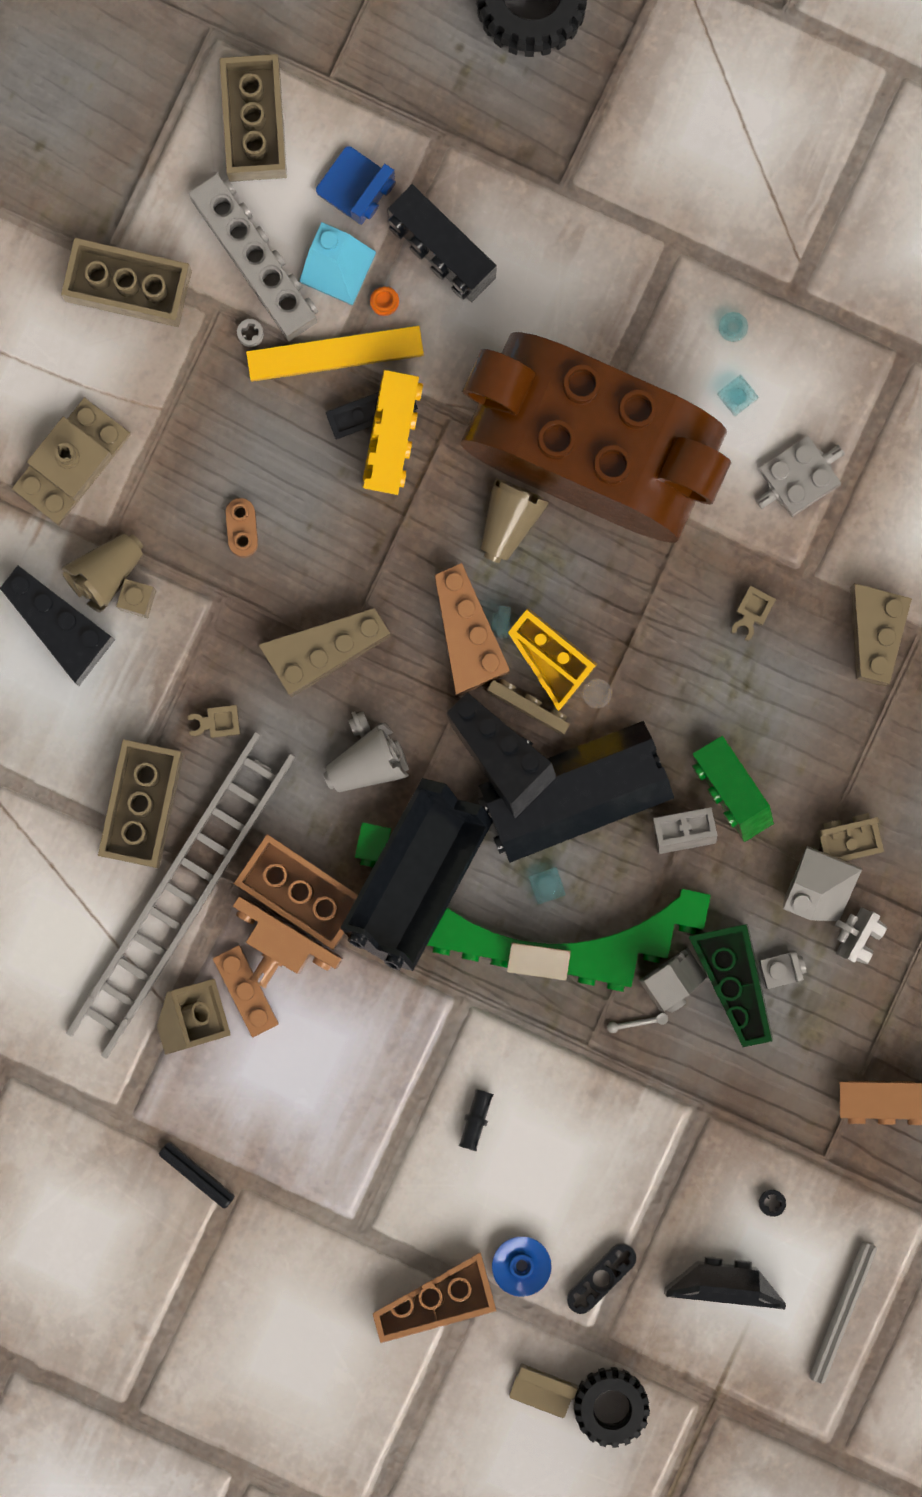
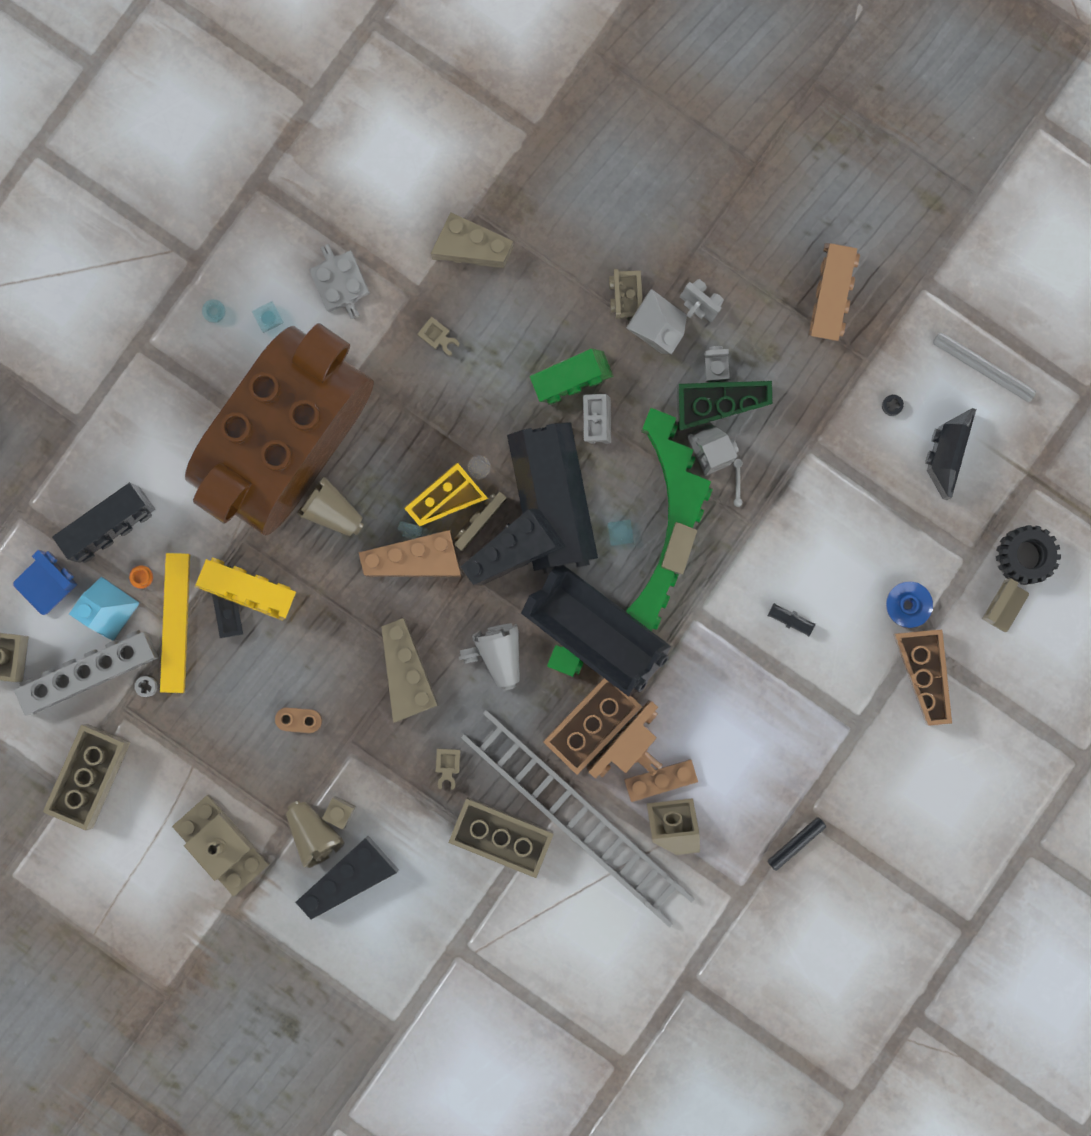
camera: 80 degrees left, 0 degrees up
(580, 1289) = (932, 563): black beam -> none

